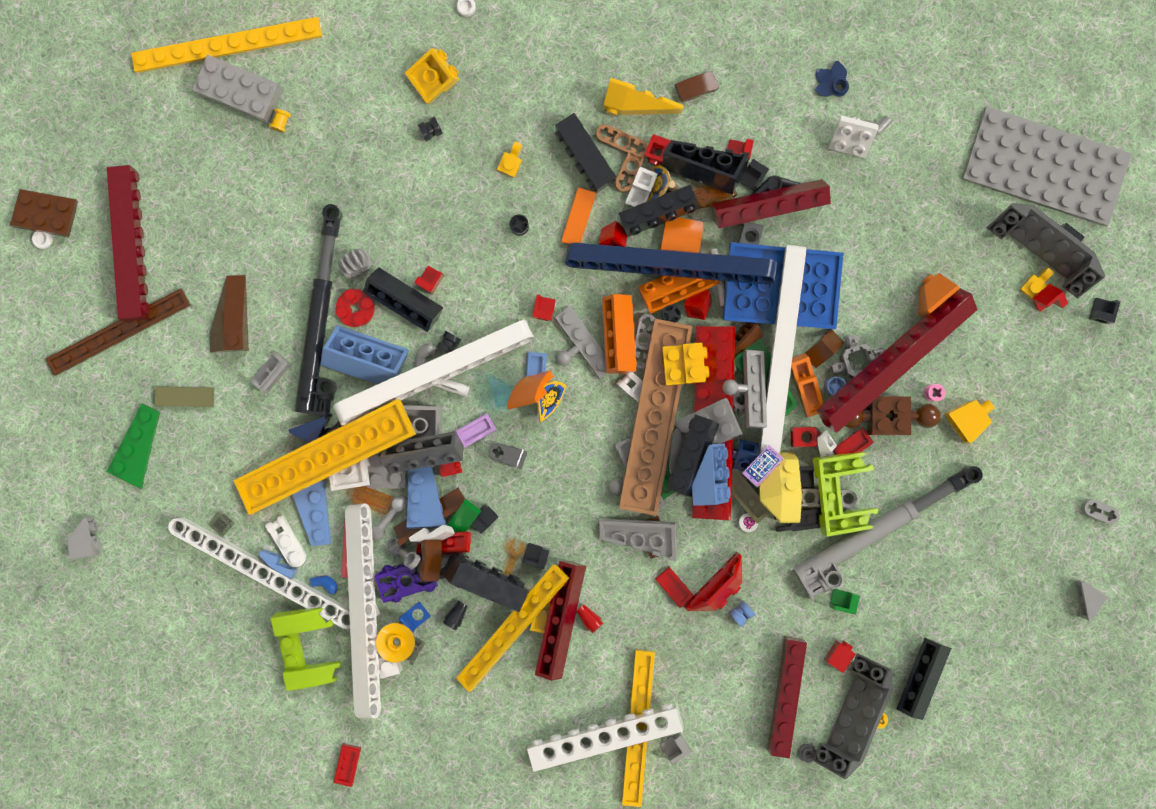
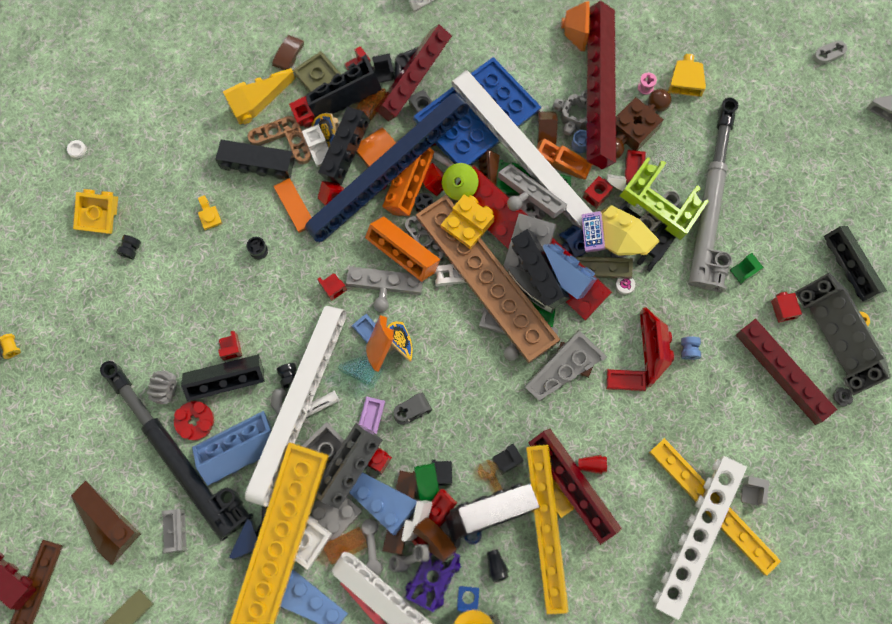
camera: 45 degrees left, 15 degrees down
(701, 126) = (315, 71): none -> olive plate
(719, 328) = (468, 184): none -> lime dish

